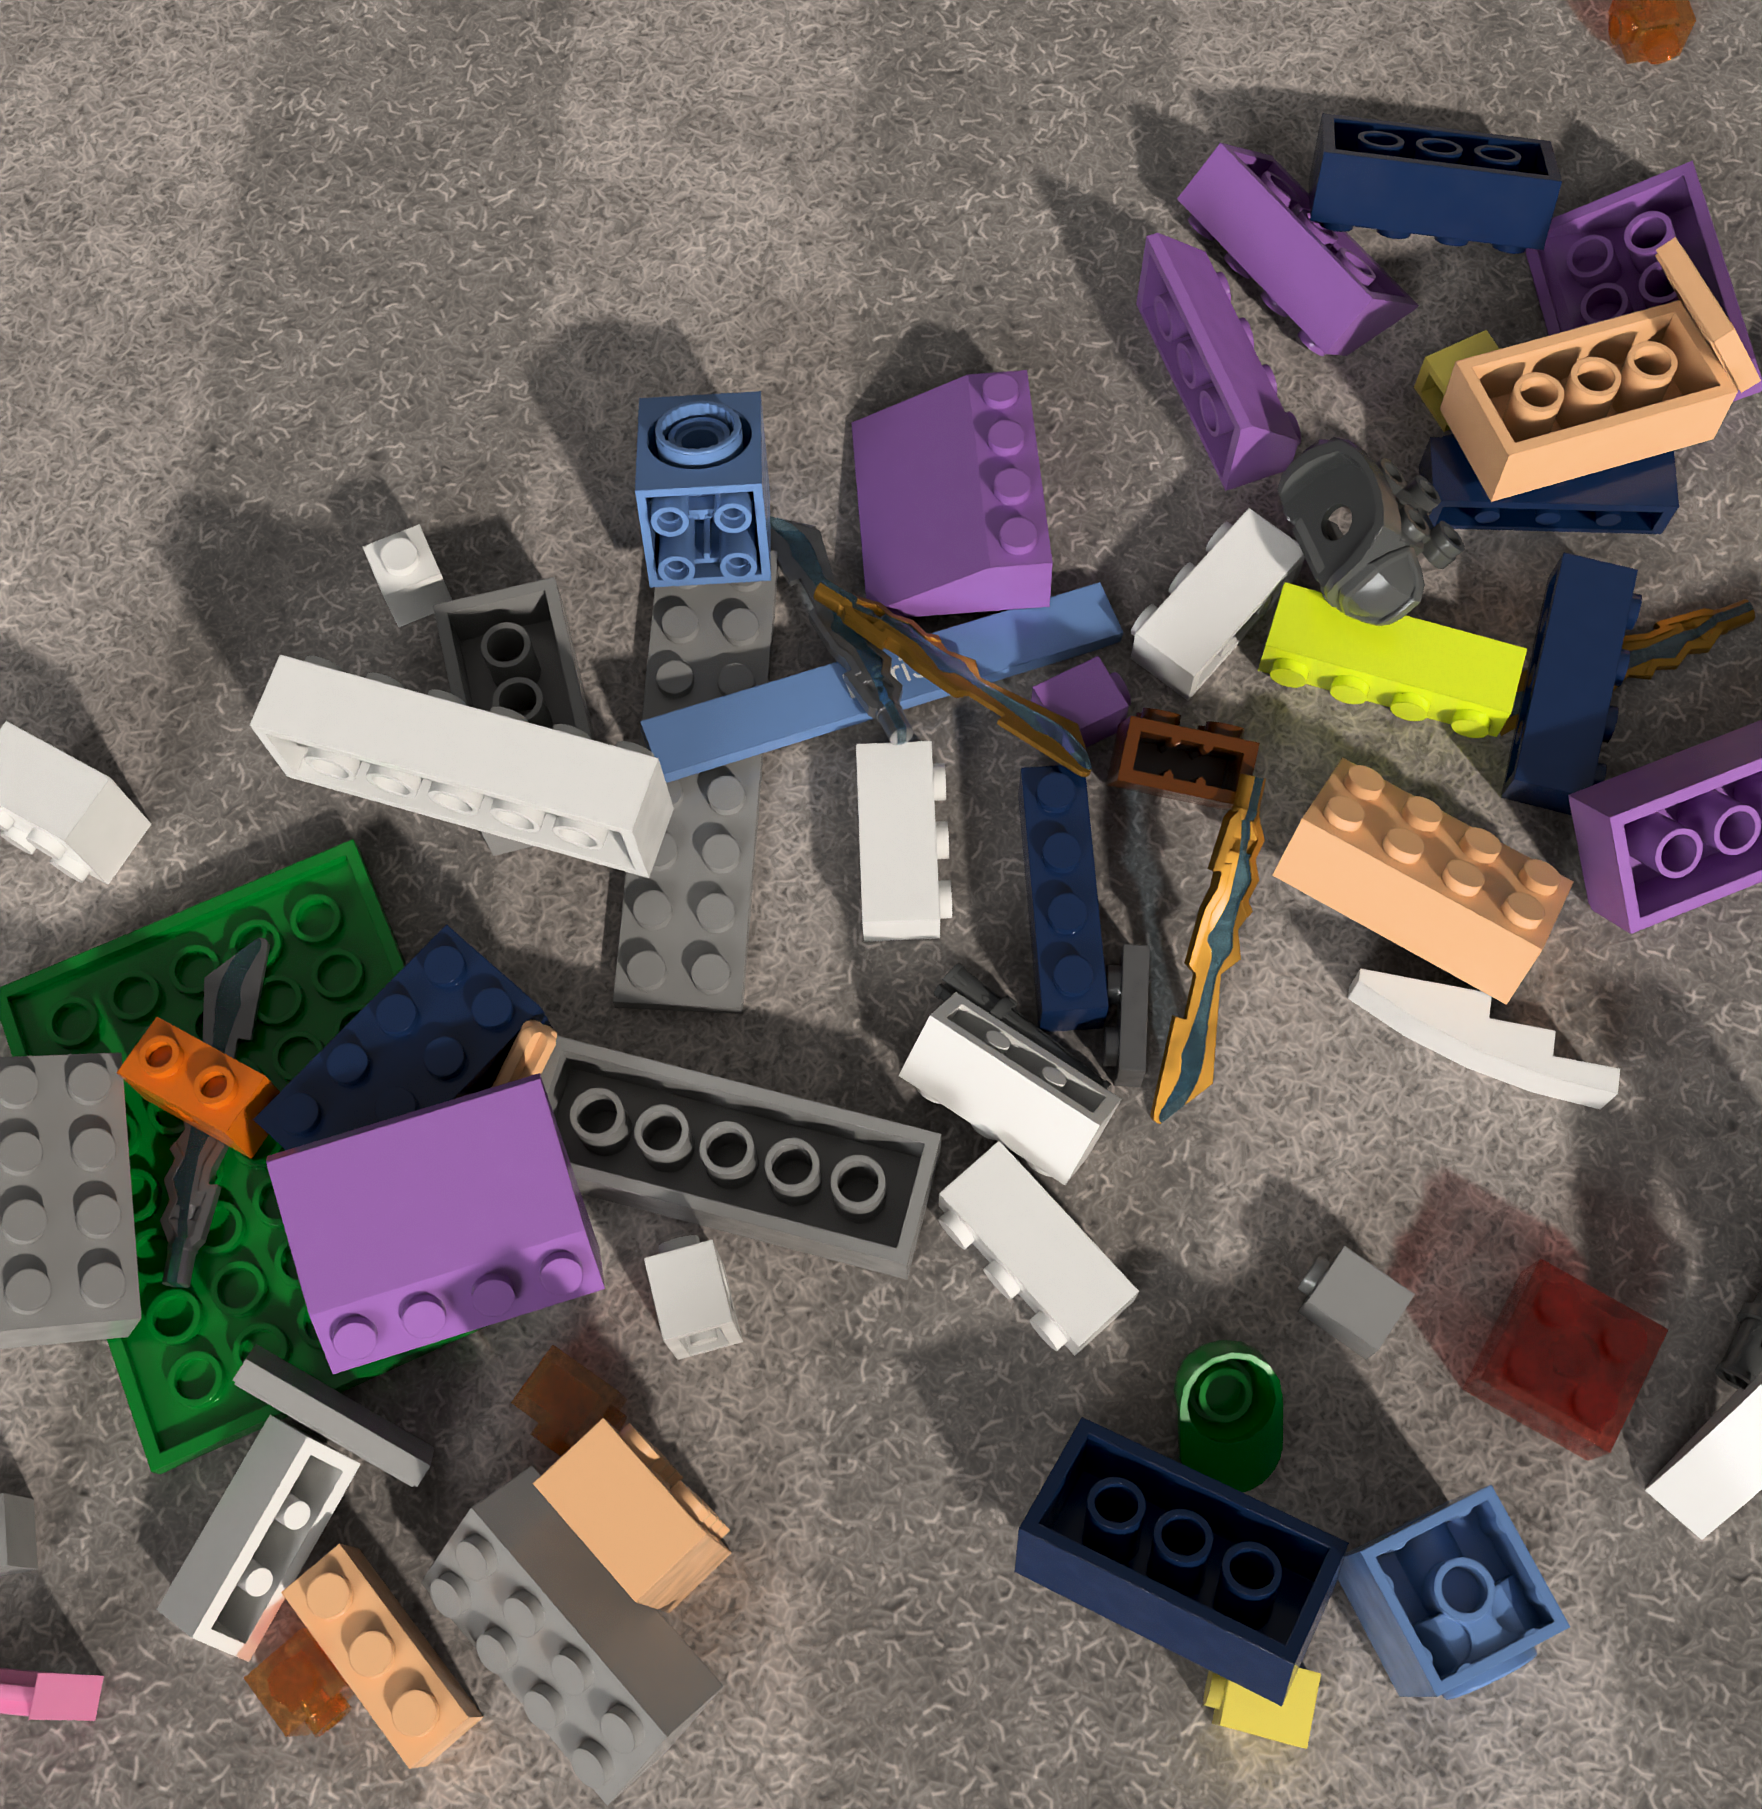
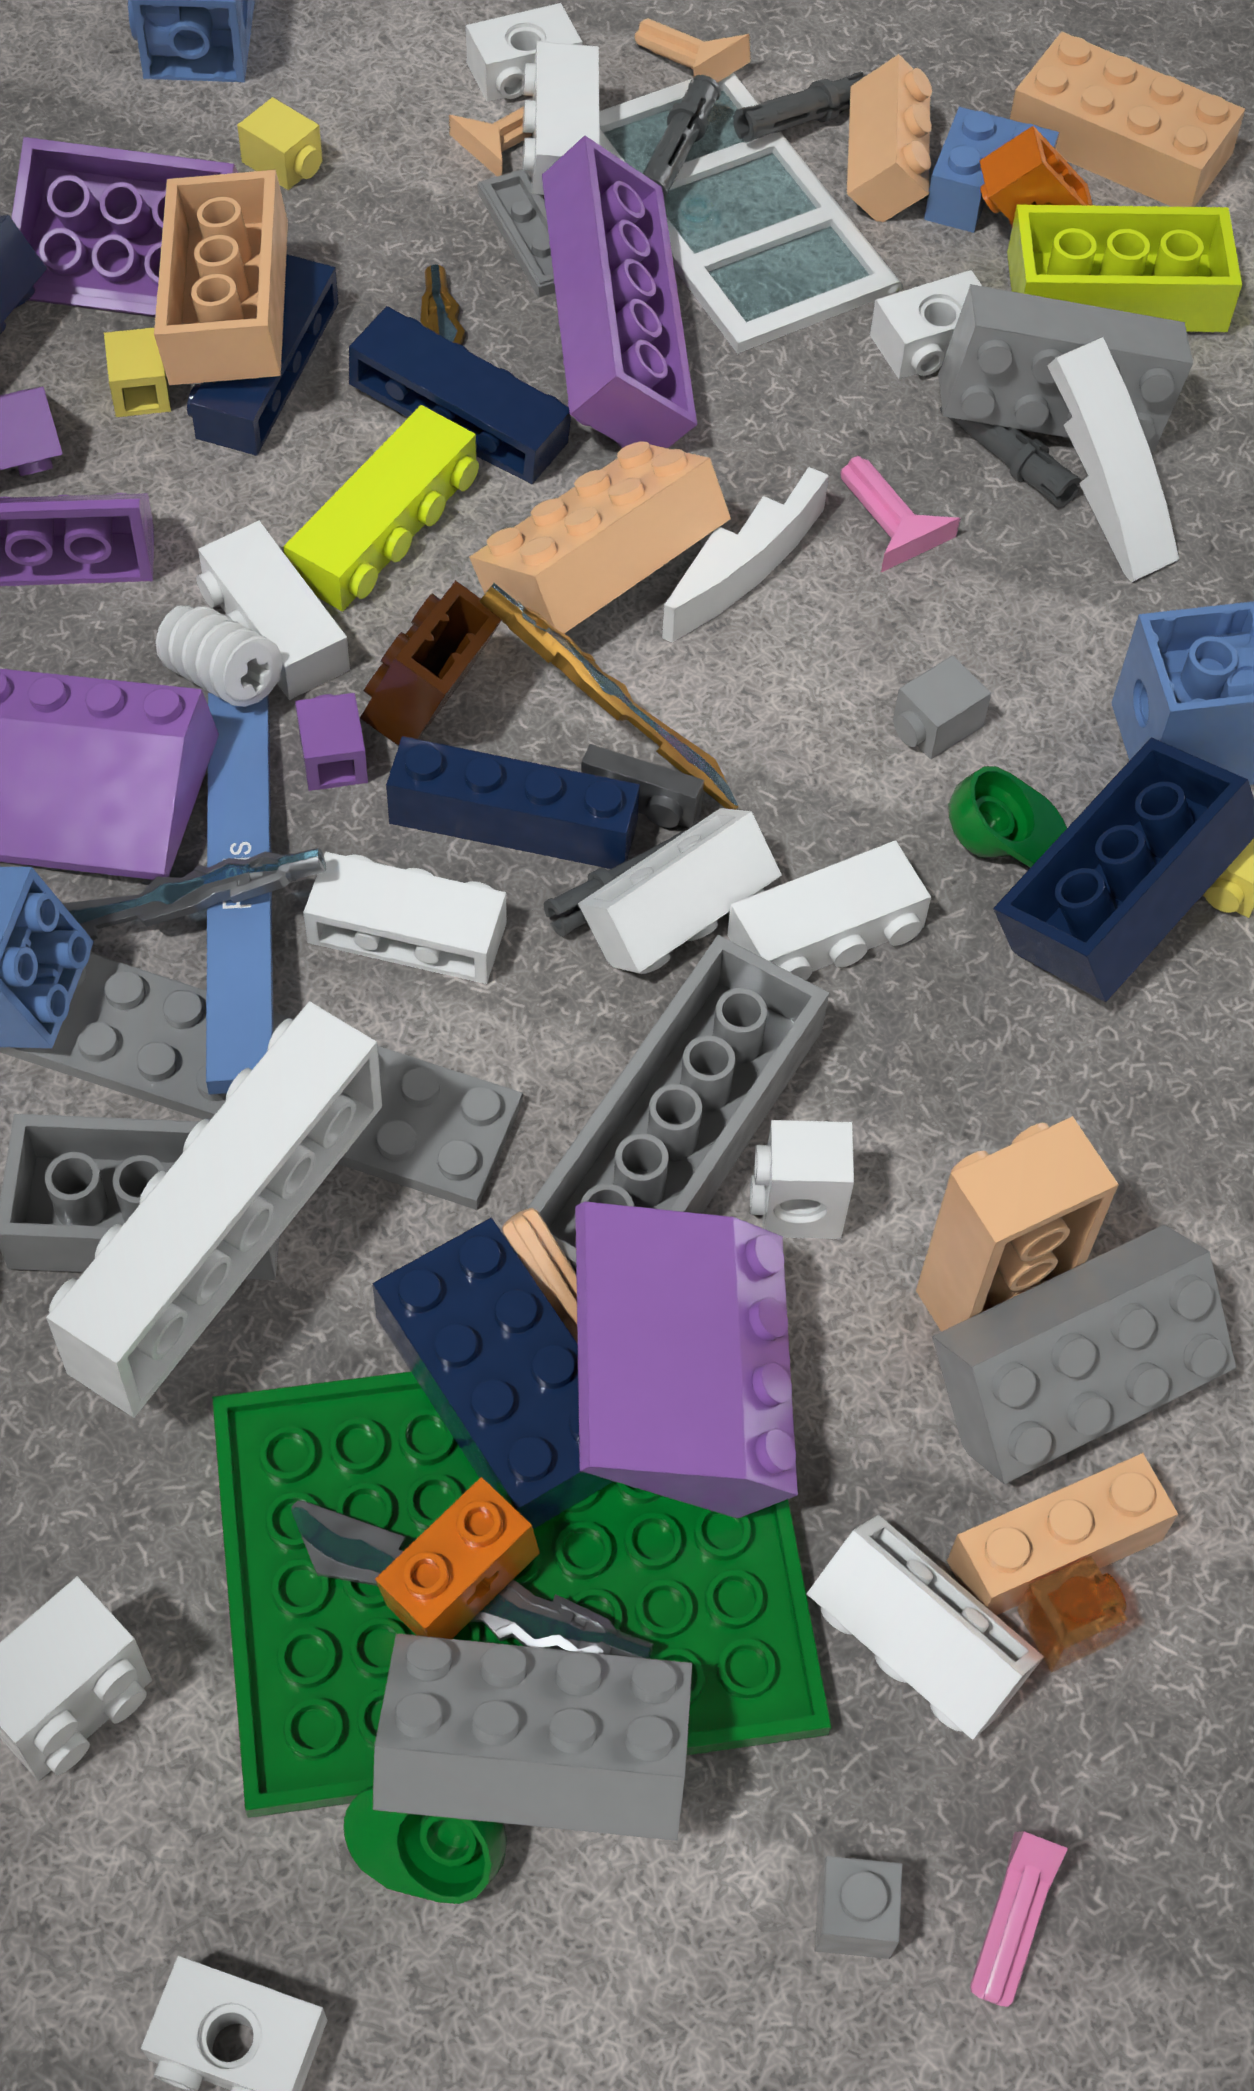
camera: 80 degrees left, 10 degrees down
(334, 1416) = (826, 1525): light grey tile -> none
(567, 1401) = (865, 1324): clear orange brick -> none
(958, 676) = (264, 813): pearl gold sword -> none
(1130, 571) = (219, 654): none -> white piece
(1375, 565) = (315, 464): dark grey piece -> none
(1566, 1360) = (1026, 586): clear red brick -> none
(1600, 1208) = (908, 532): none -> bright pink piece
(1707, 314) = (187, 157): light nougat tile -> none

